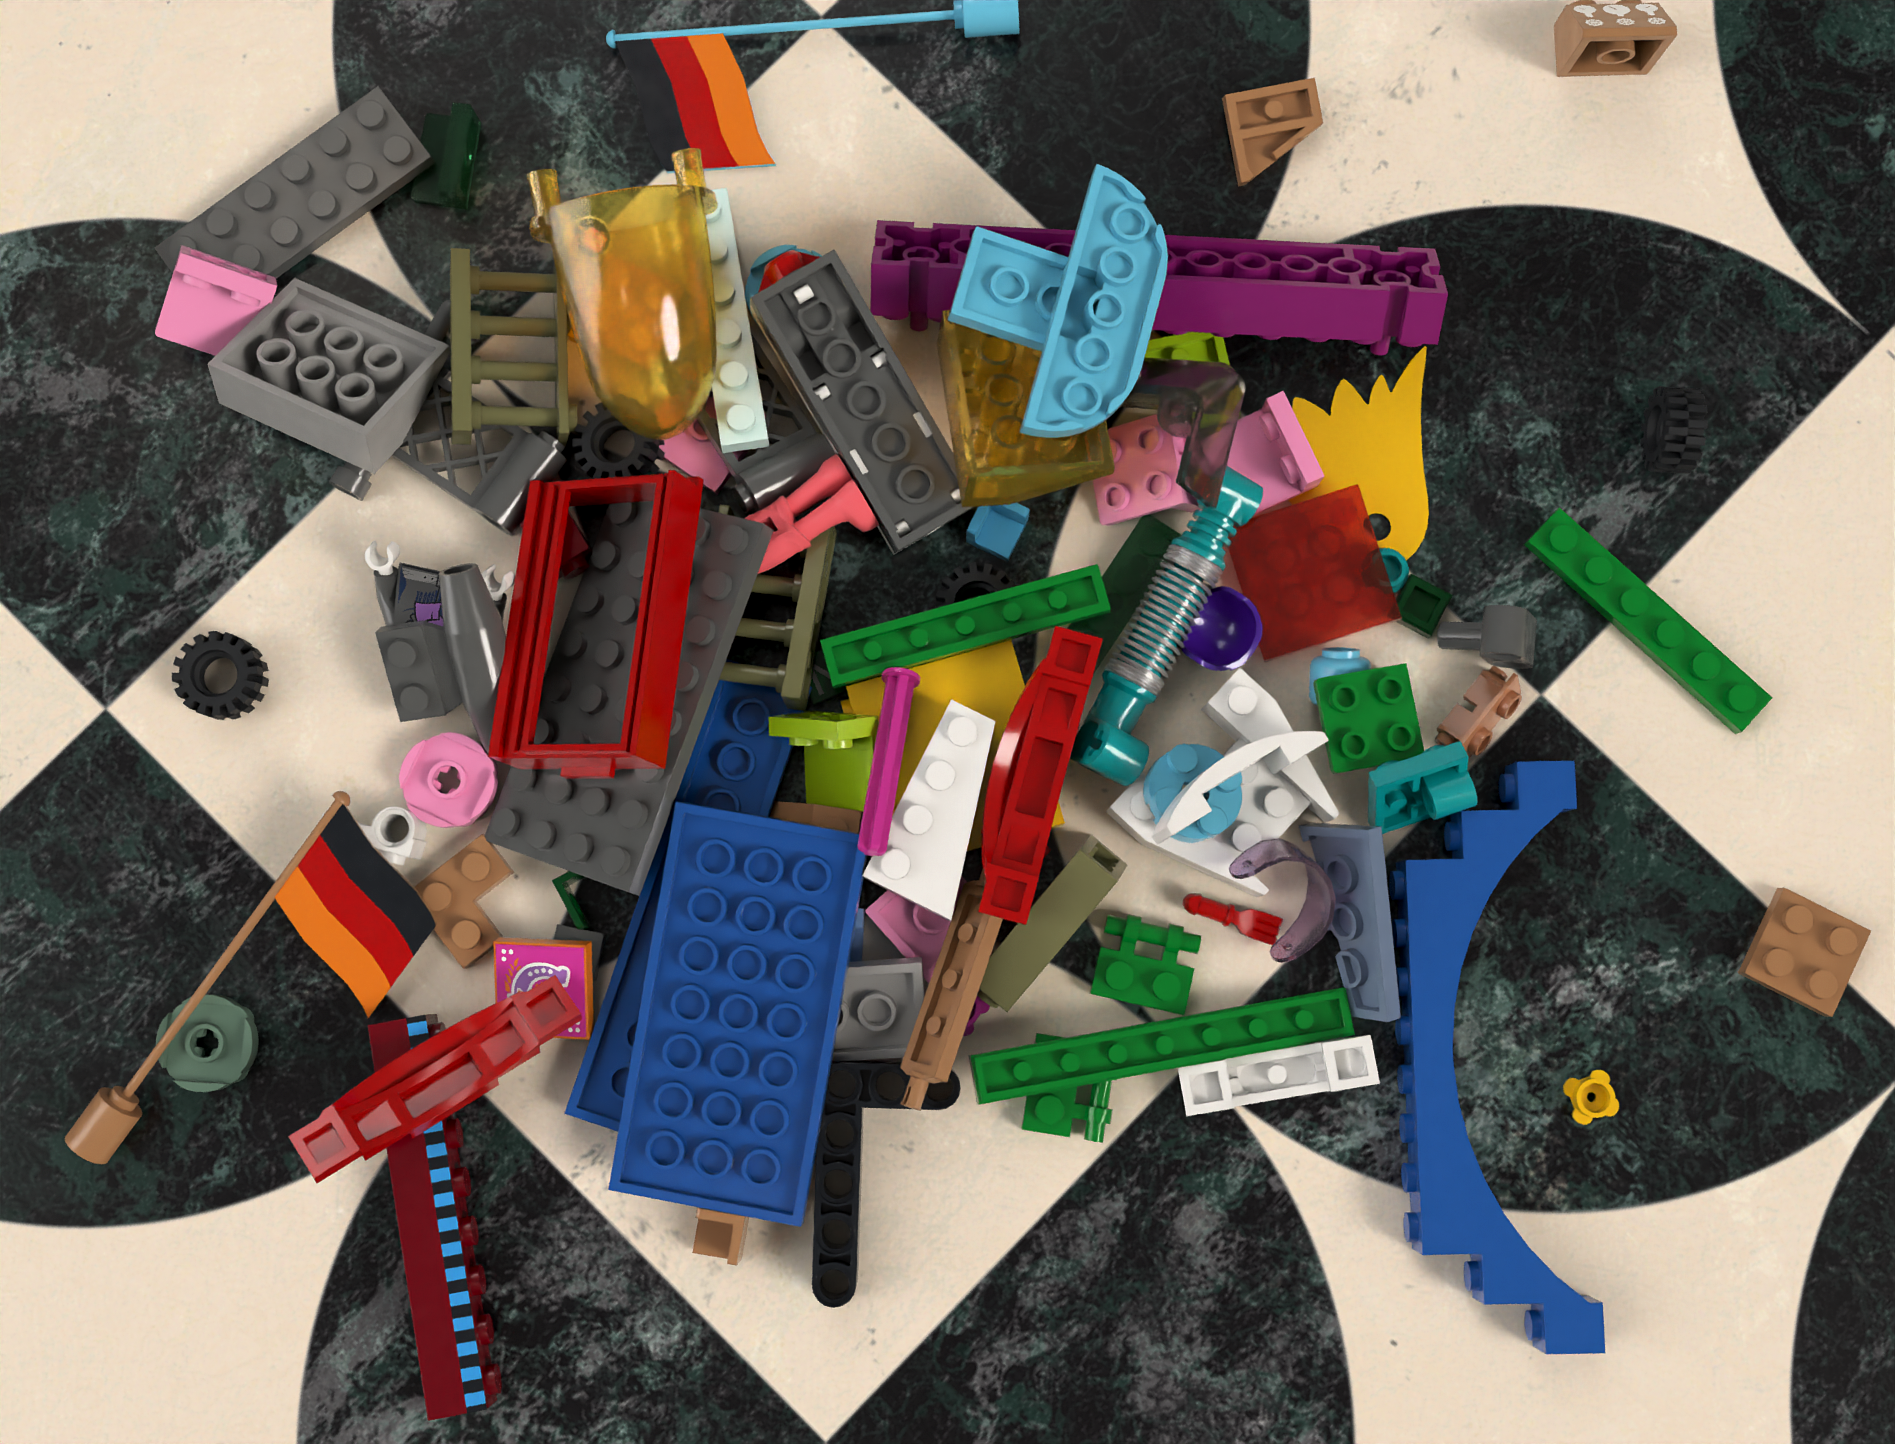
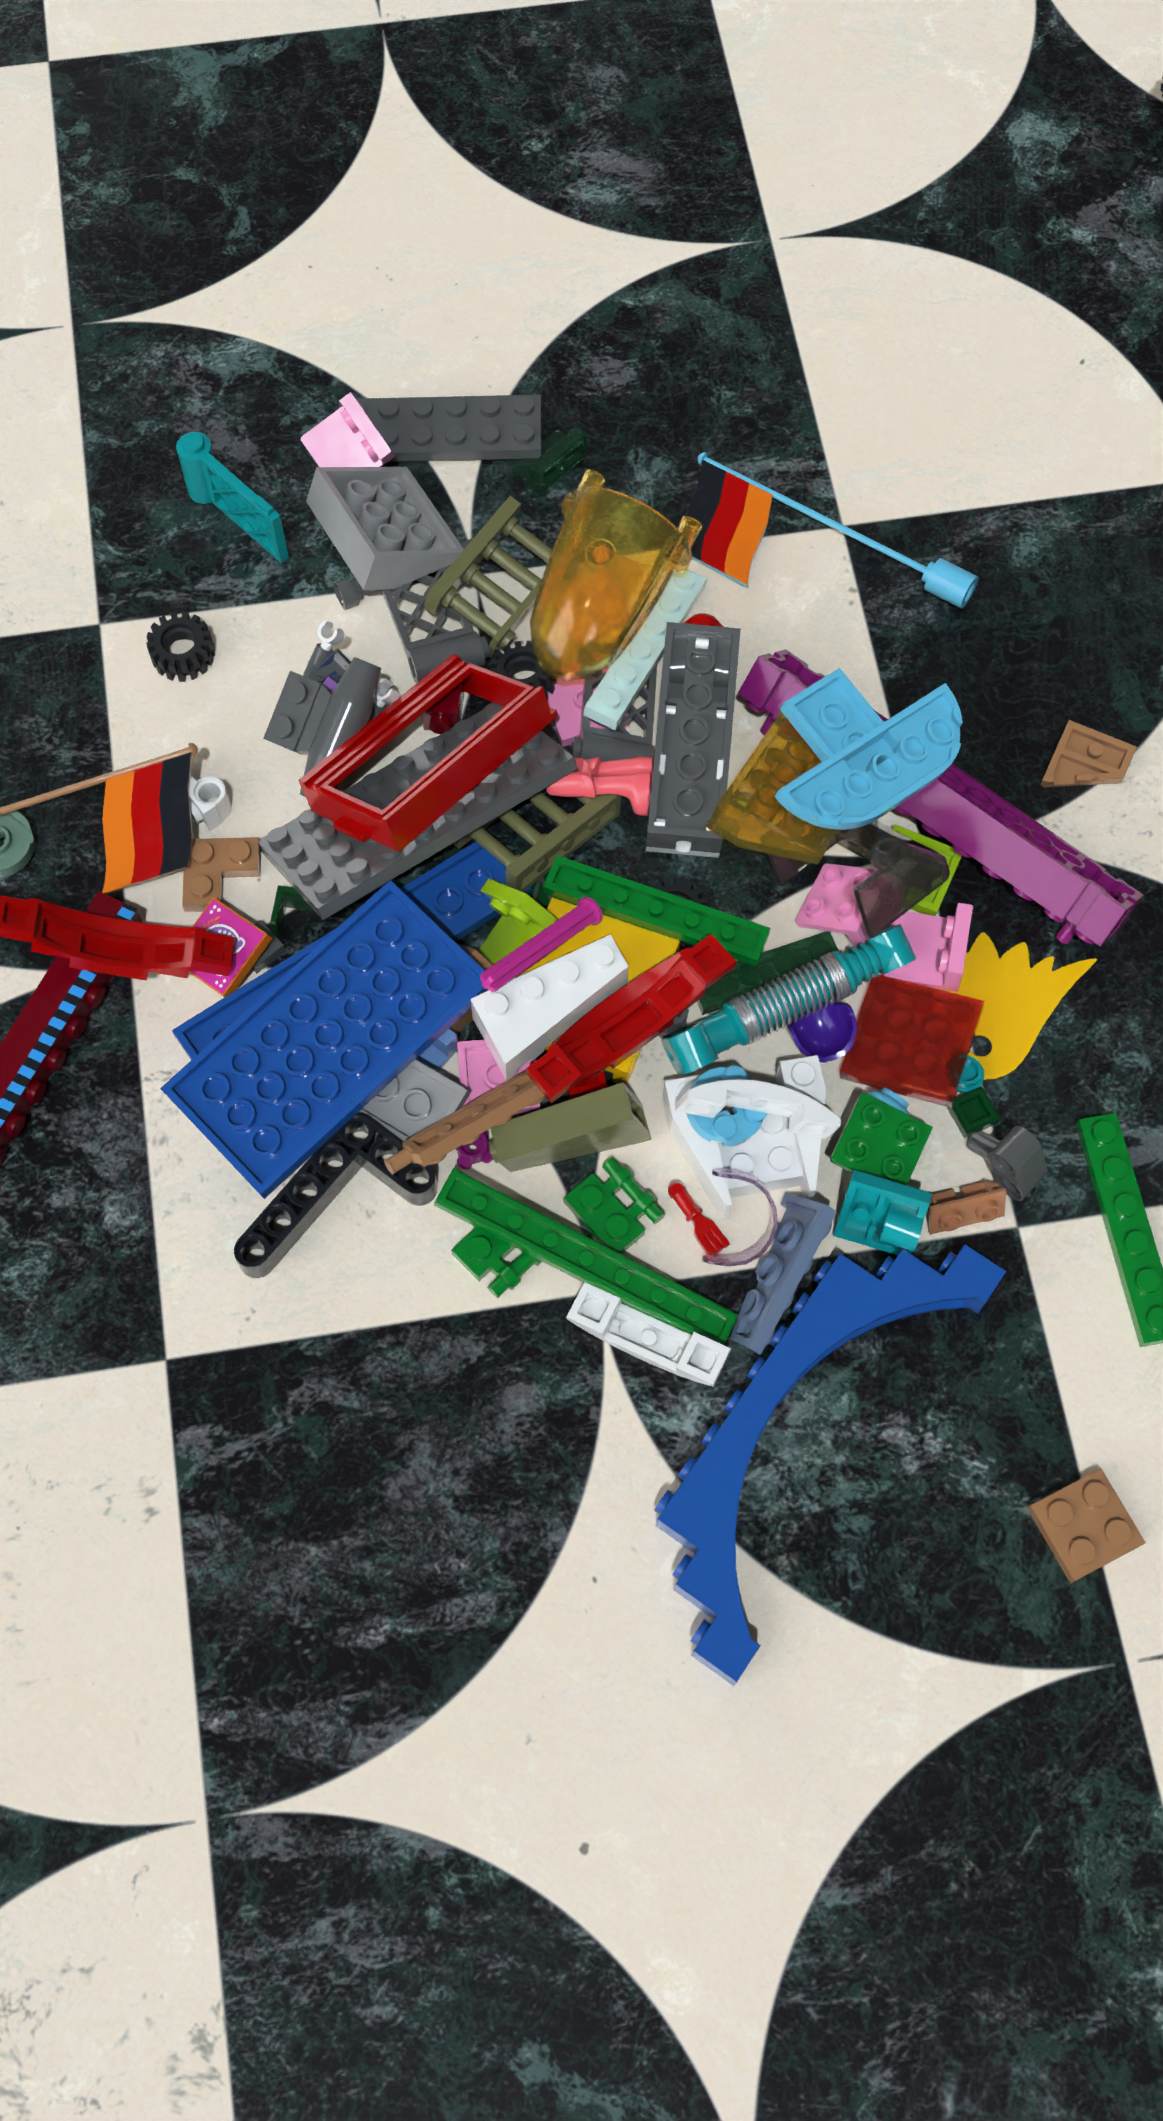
camera: 35 degrees right, 15 degrees down
(91, 460) = (212, 482): none -> teal piece
(423, 790) = (266, 813): bright pink plate -> none
(720, 1235) = (209, 1173): medium nougat panel -> none
(997, 528) = (725, 873): dark azure panel -> none
(1604, 1102) = (869, 1506): yellow plate -> none

